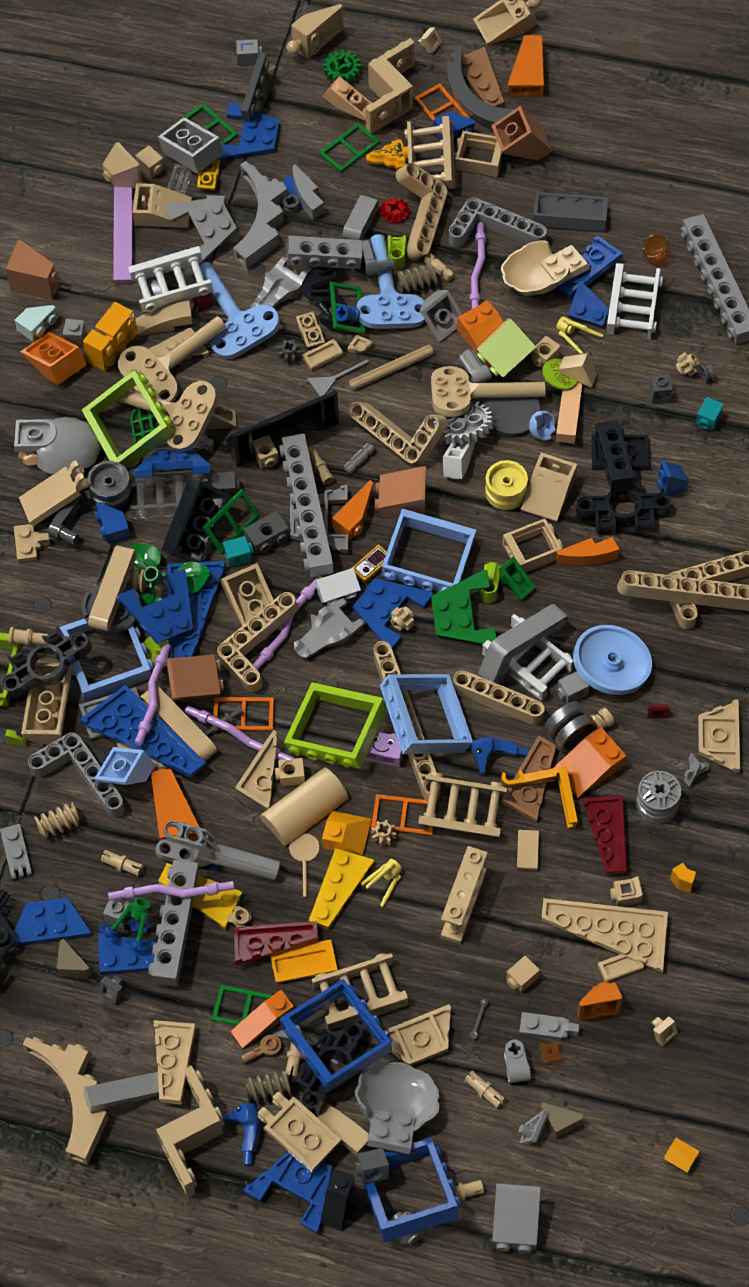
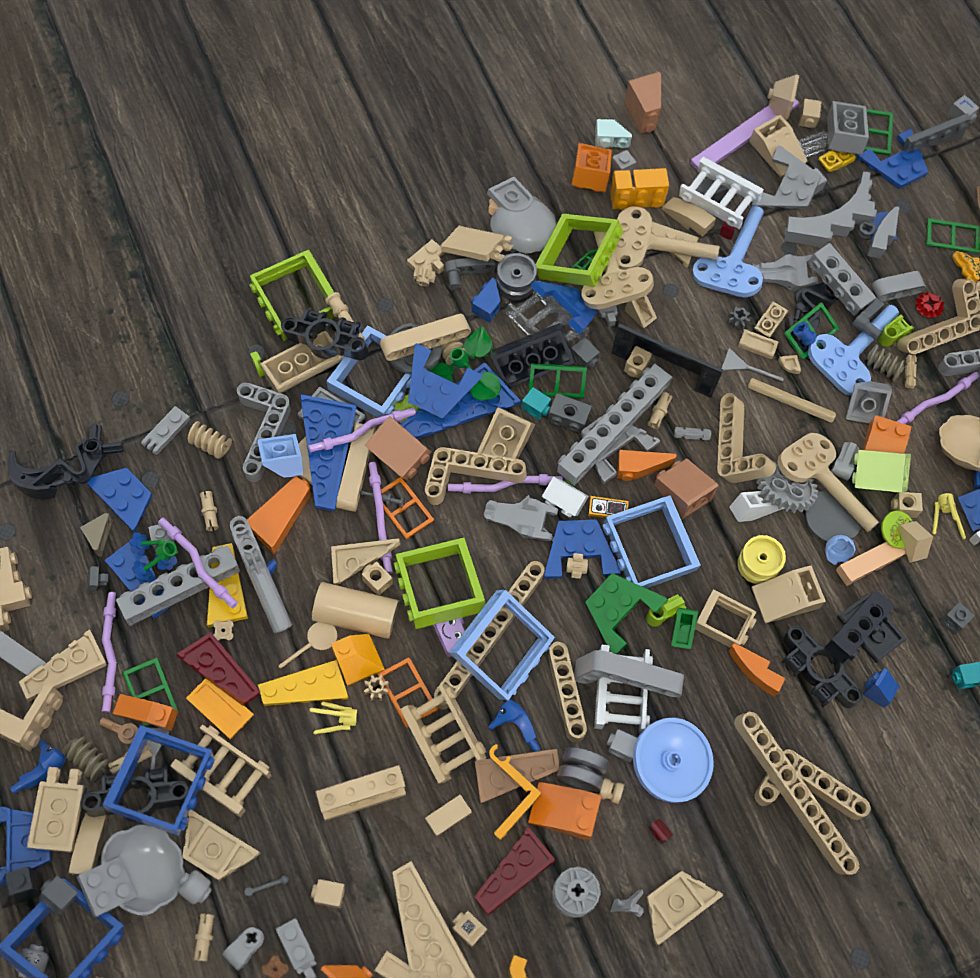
camera: 45 degrees right, 5 degrees up
(45, 554) = (424, 275): none -> tan gear
(219, 1037) = (109, 689): none -> lavender bar
(440, 1068) = (194, 887): none -> light grey head

